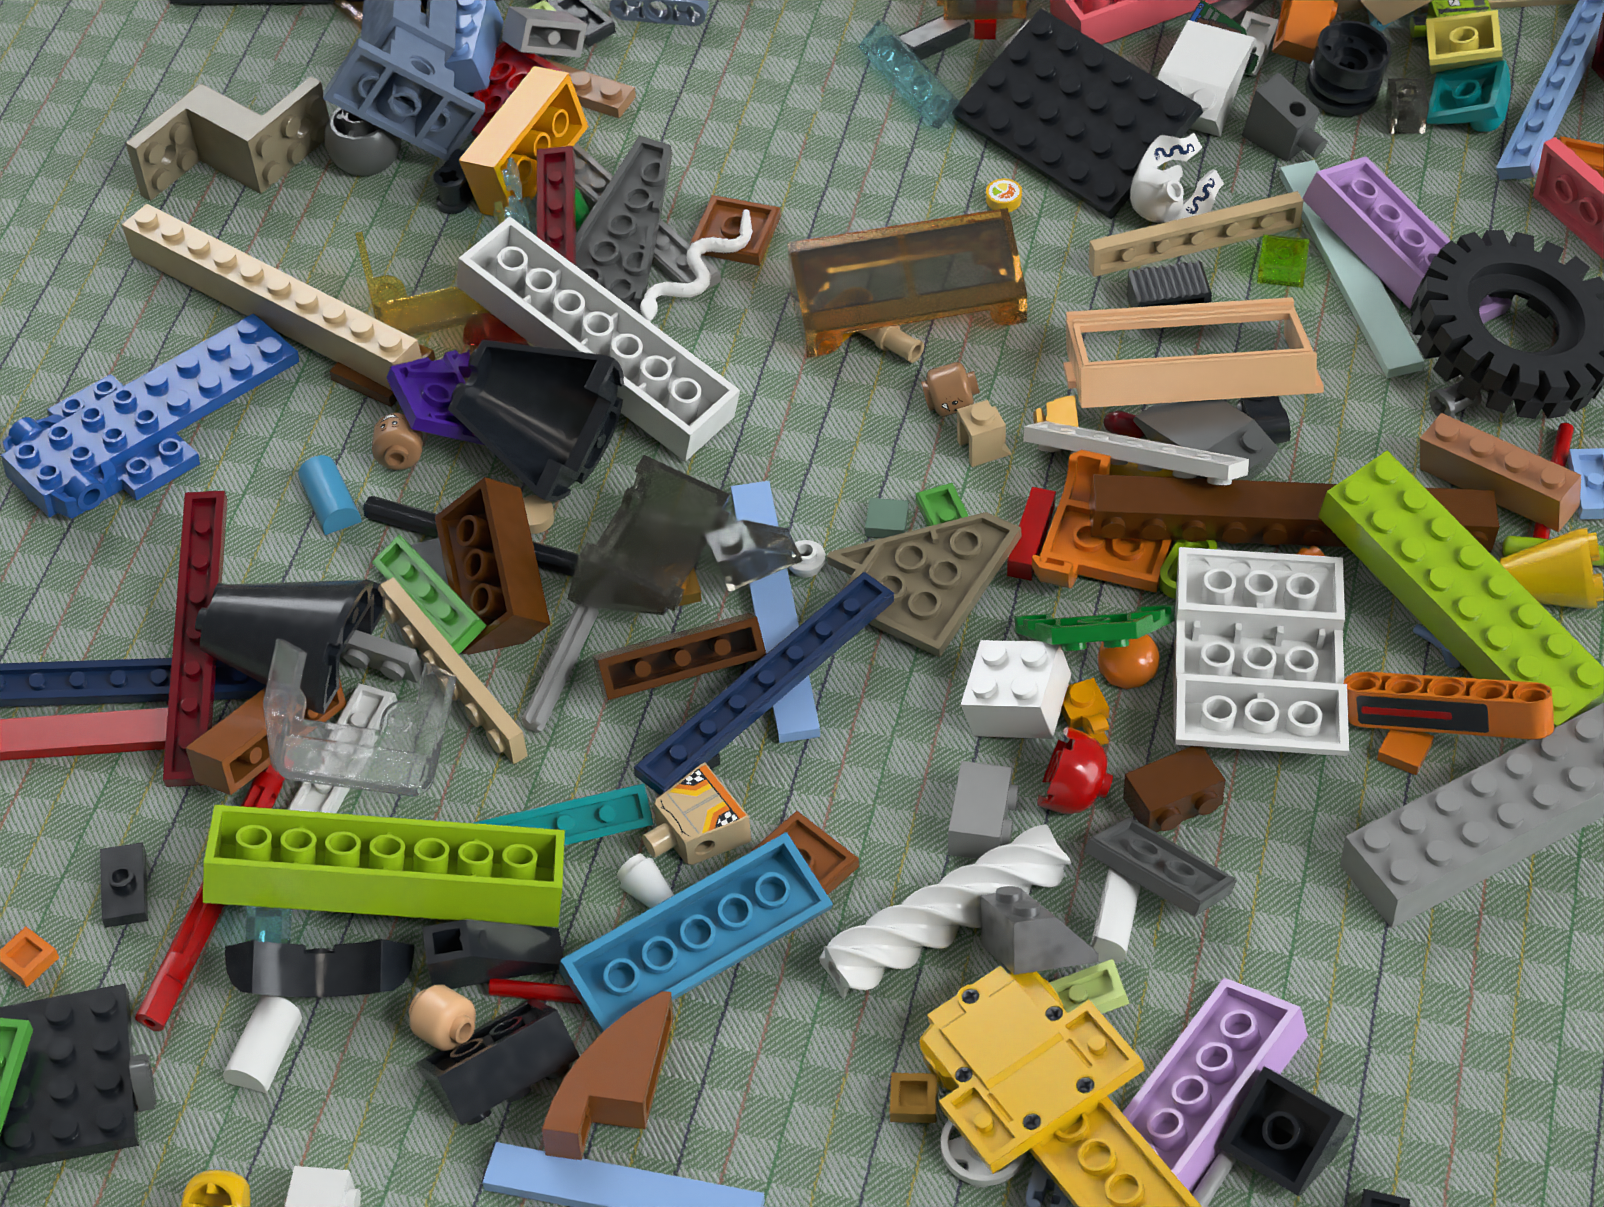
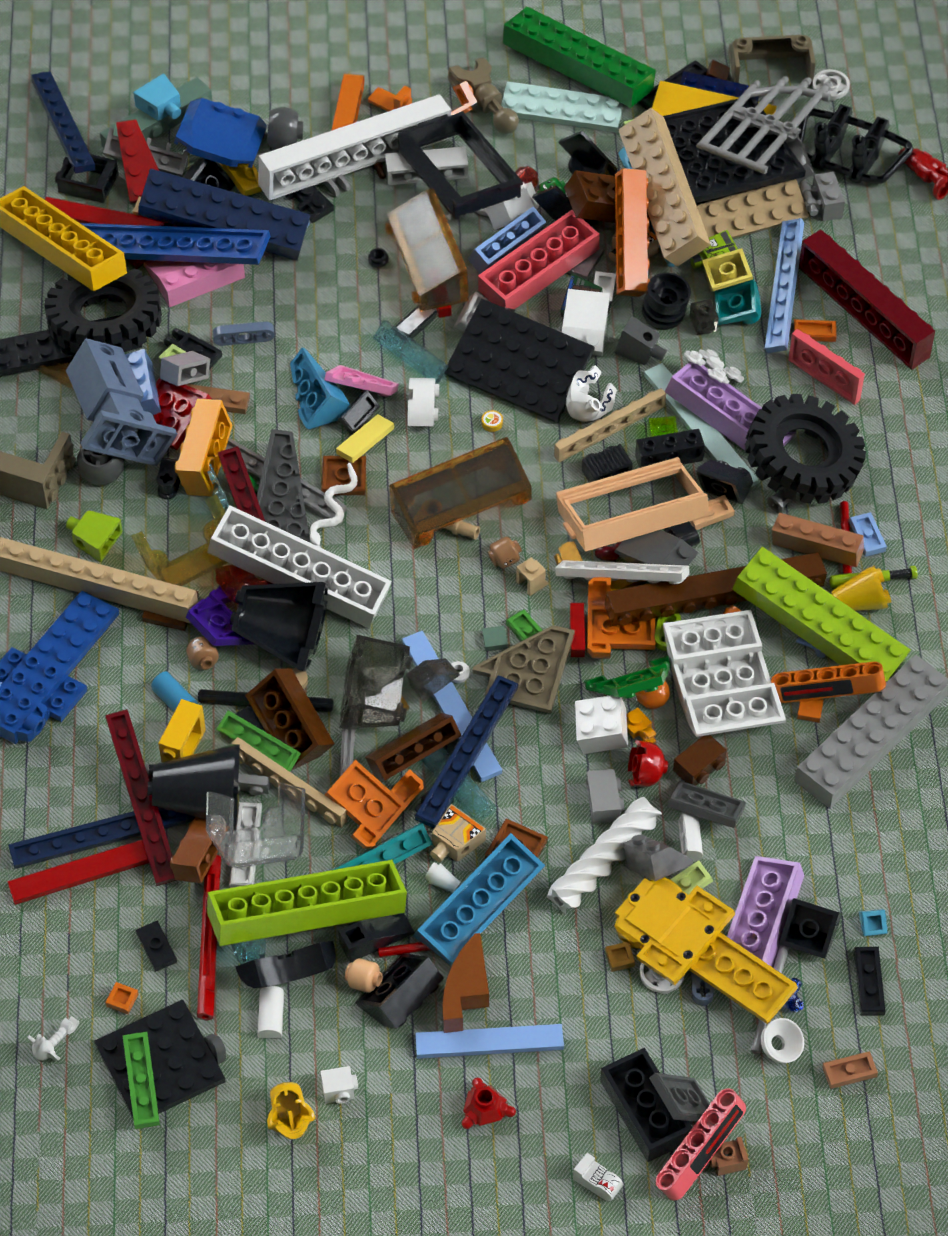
camera: 20 degrees left, 5 degrees up
(312, 237) = (95, 533): none -> lime torso
(314, 524) = (182, 731): none -> yellow window
(574, 730) = (371, 802): none -> orange piece
(741, 106) = (319, 399): none -> dark azure wedge
(748, 753) = (469, 793): none -> clear light blue plate
(787, 181) = (365, 438): none -> light yellow tile
(792, 143) = (358, 412): none -> tile
(813, 98) = (361, 380): none -> bright pink wing
(897, 146) = (422, 402): none -> white brick
(1311, 283) = (685, 445): none -> black brick
(1340, 396) = (722, 510): none -> light nougat plate
(1361, 348) = (722, 479): none -> black slope
(1401, 175) = (713, 362): none -> white plant
(1414, 1152) = (873, 922): none -> medium azure slope

